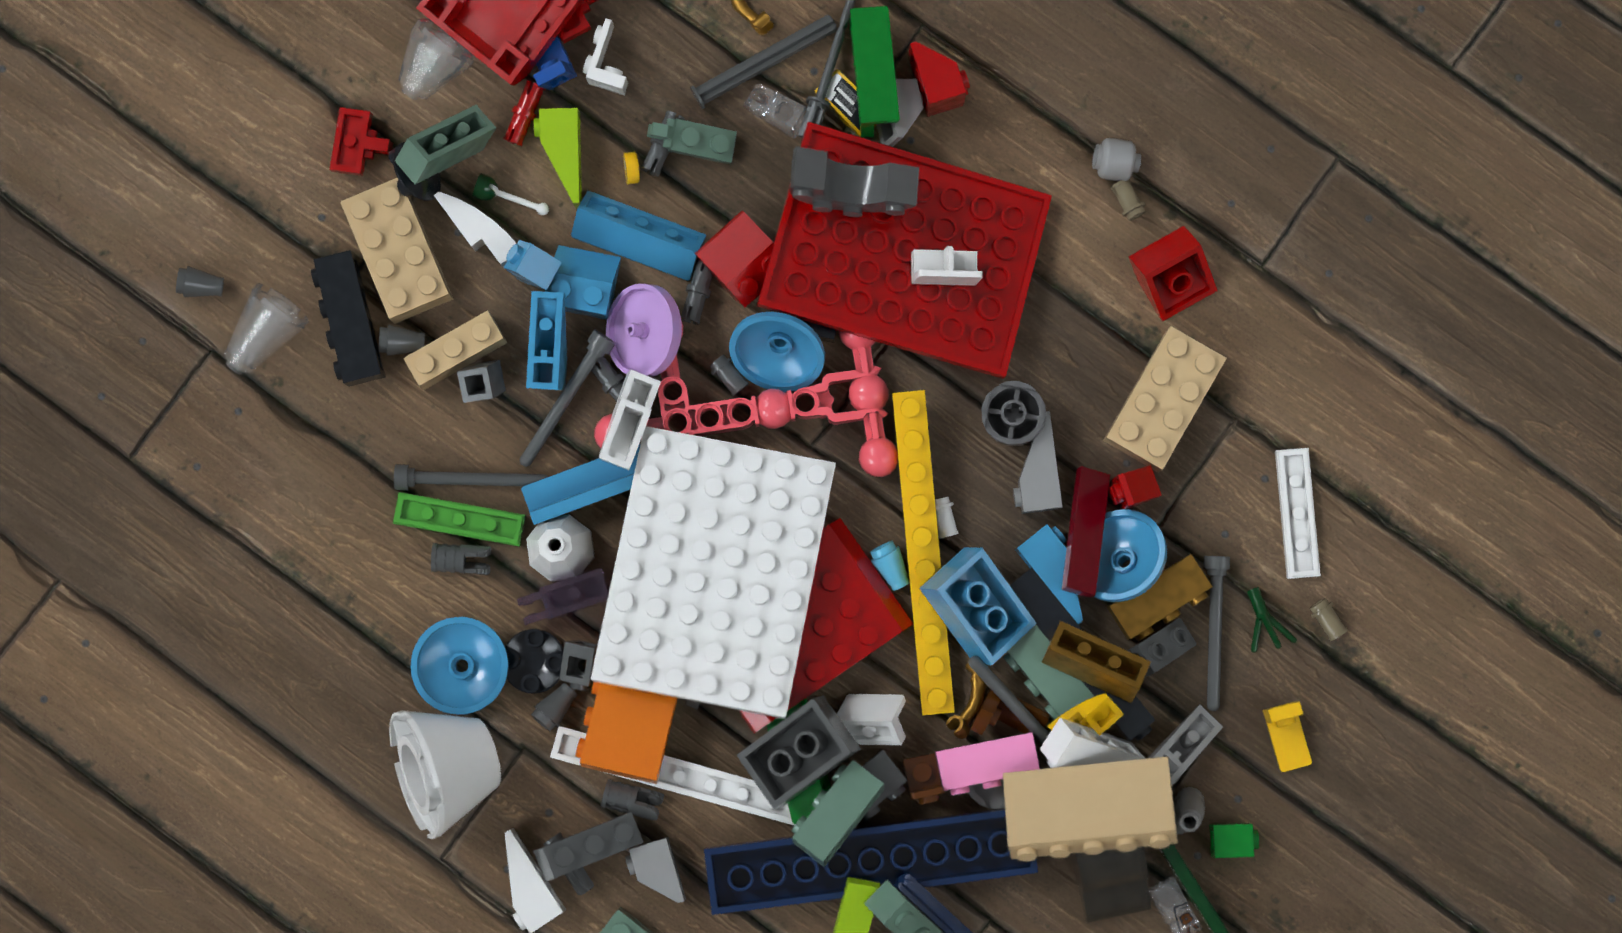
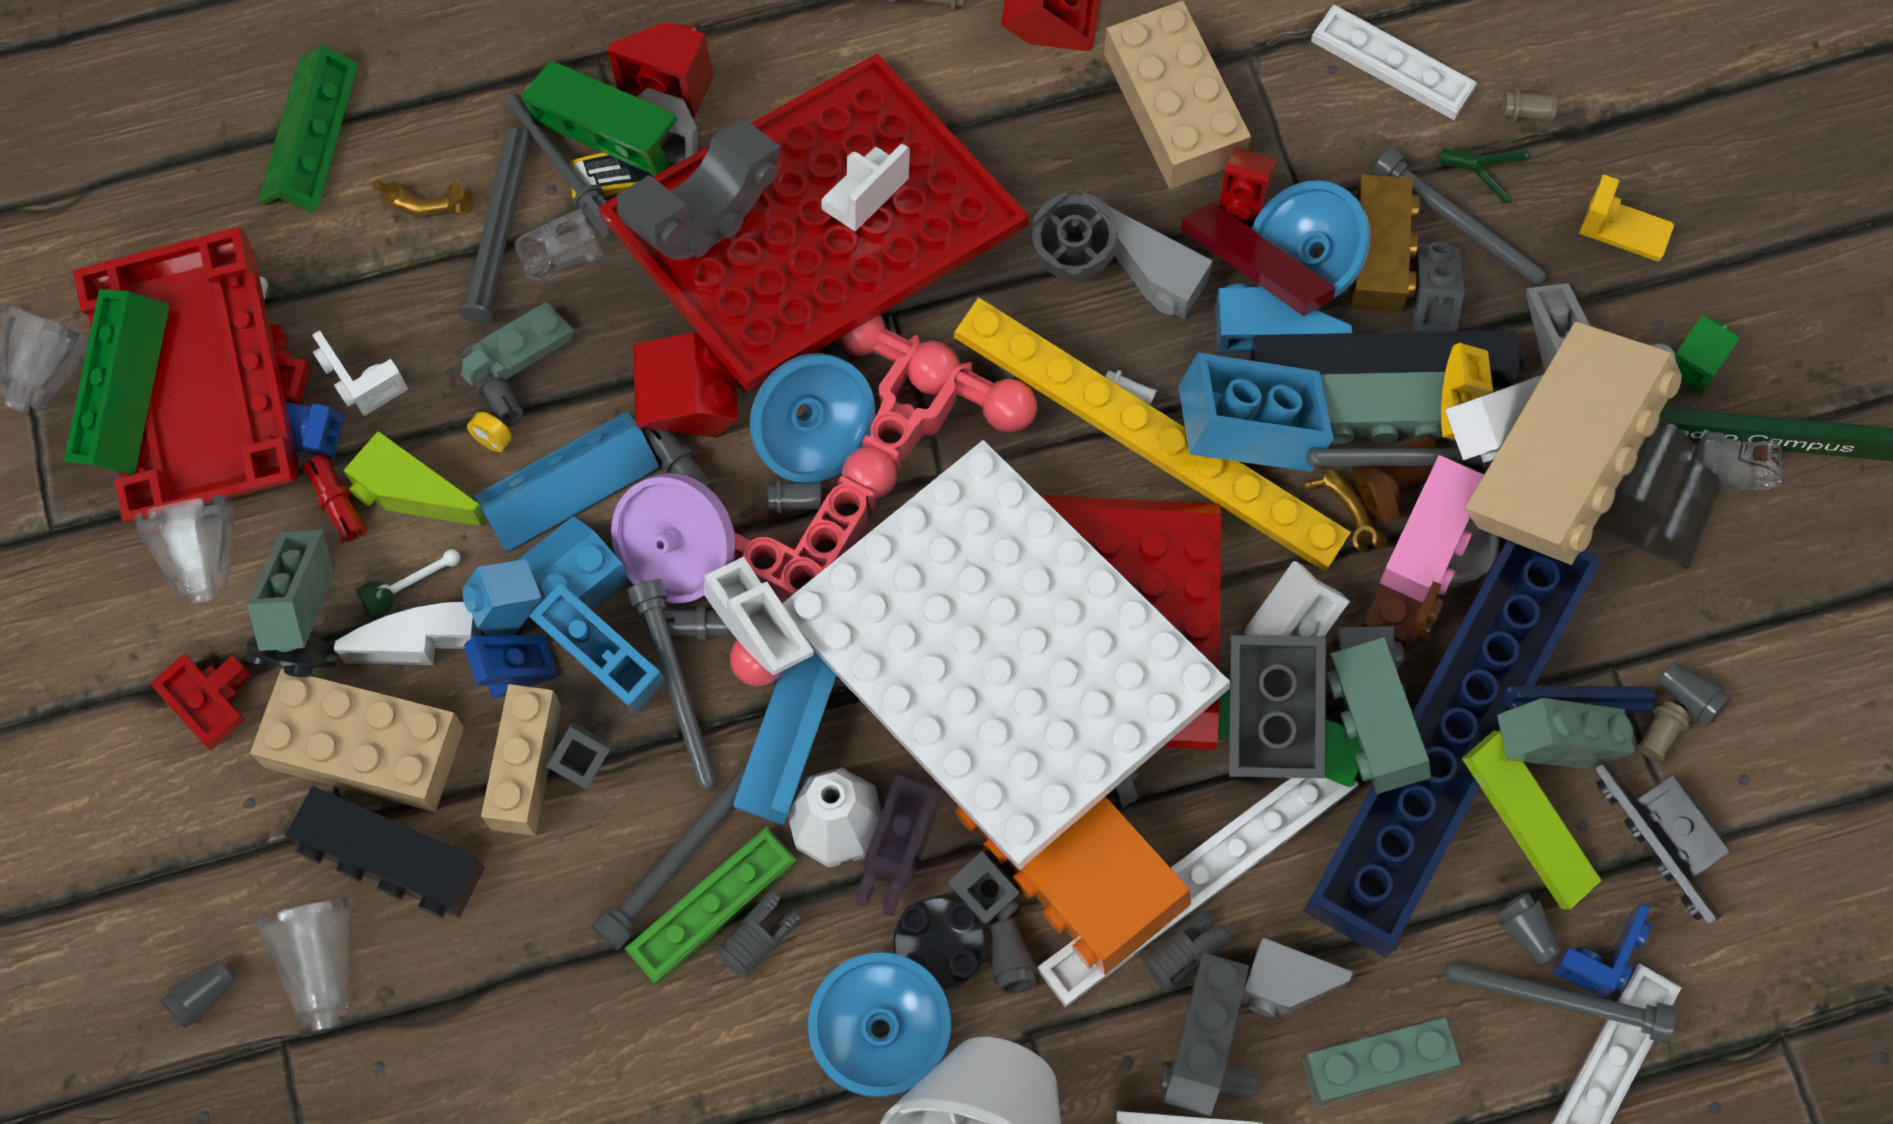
camera: 55 degrees left, 15 degrees down
(398, 340) = (457, 816): dark grey cone -> none
(504, 296) = (511, 661): none -> blue slope
(890, 564) = (1136, 481): medium azure cone -> none
(1096, 662) = (1411, 331): pearl gold brick -> none

